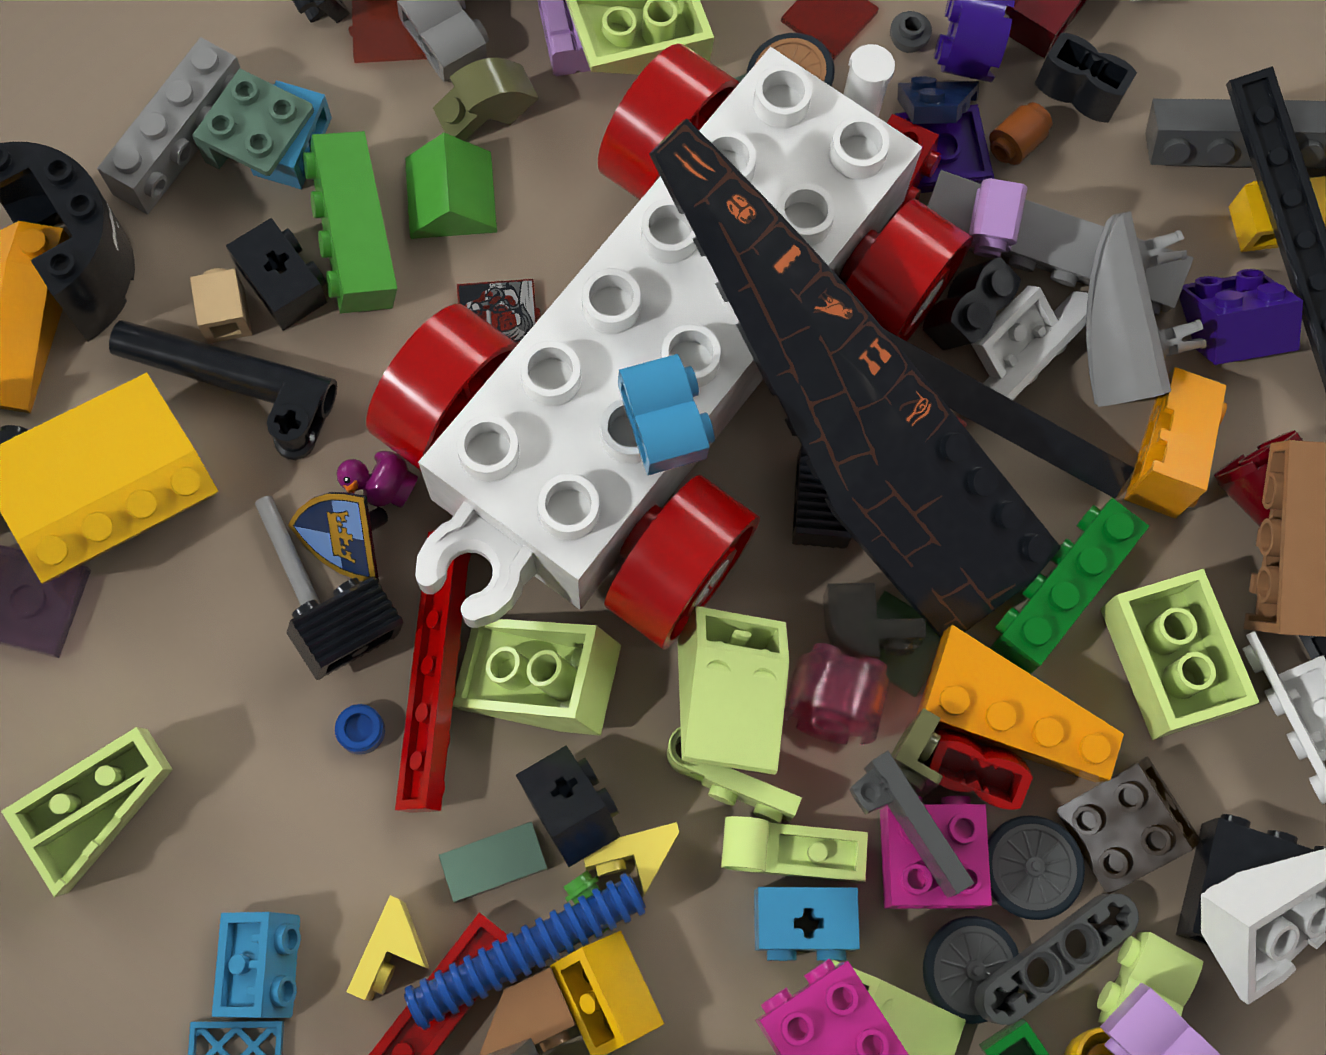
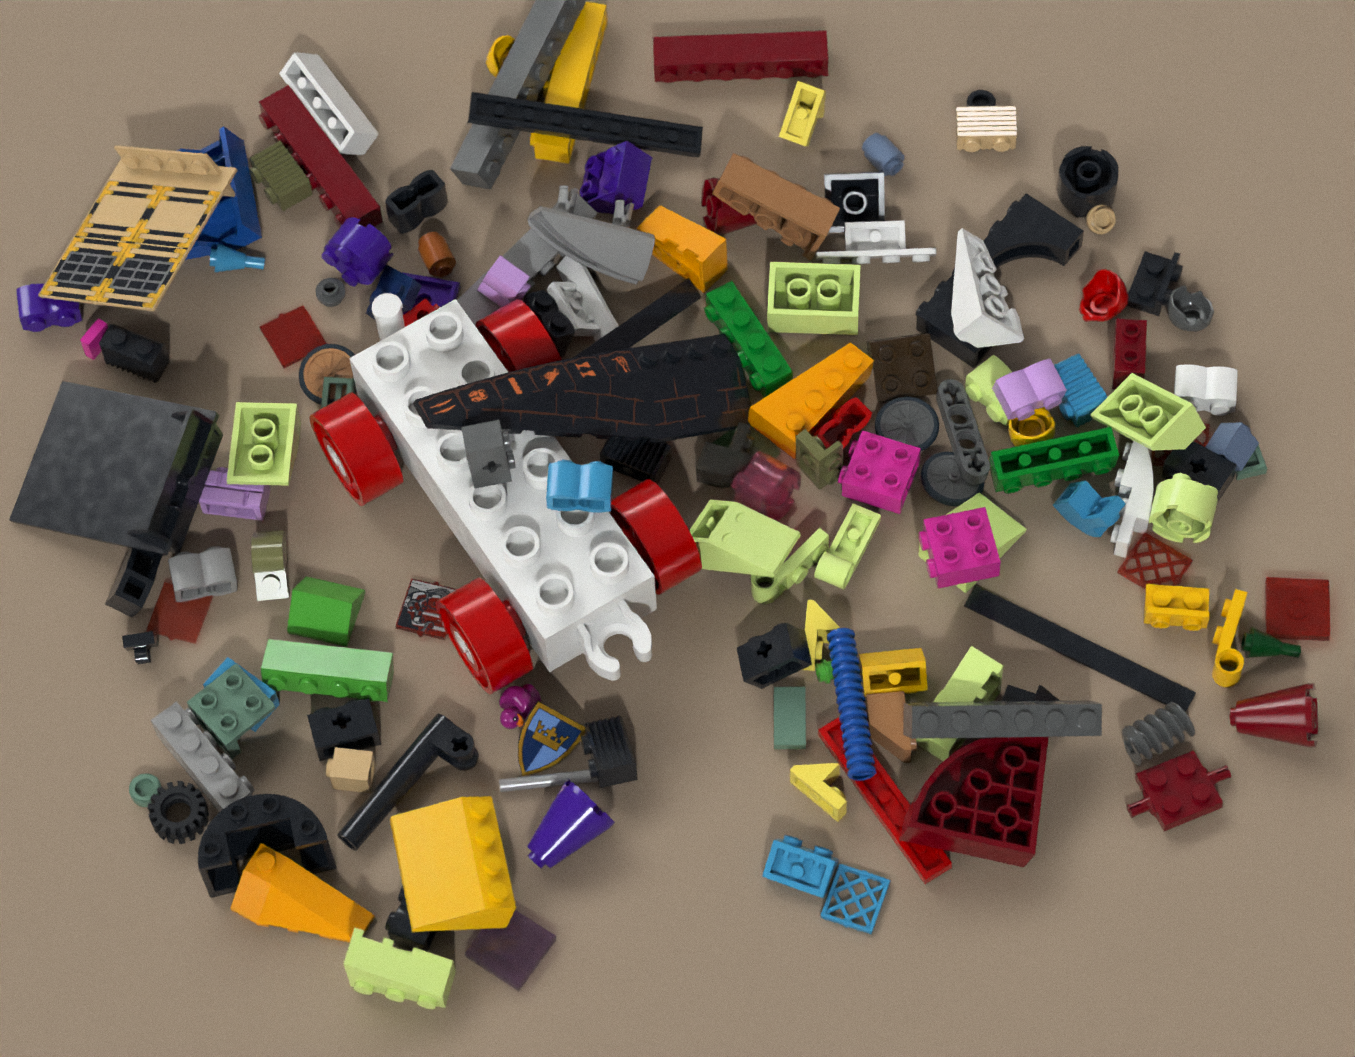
camera: 60 degrees left, 10 degrees down
(86, 807) = (666, 931): yellowish green wedge -> none
(87, 108) = (185, 828): none -> black tyre
(128, 79) = (142, 789): none -> sand green tile
(218, 612) = (567, 826): none -> dark purple cone
(360, 729) = (676, 770): blue tile -> none
(432, 693) = (656, 712): red plate -> none
(539, 674) = (683, 655): yellowish green slope -> none
(657, 260) = (488, 453): none -> dark grey brick
(831, 906) = (880, 567): dark azure brick -> none
(887, 785) = (835, 469): dark grey hinge -> none

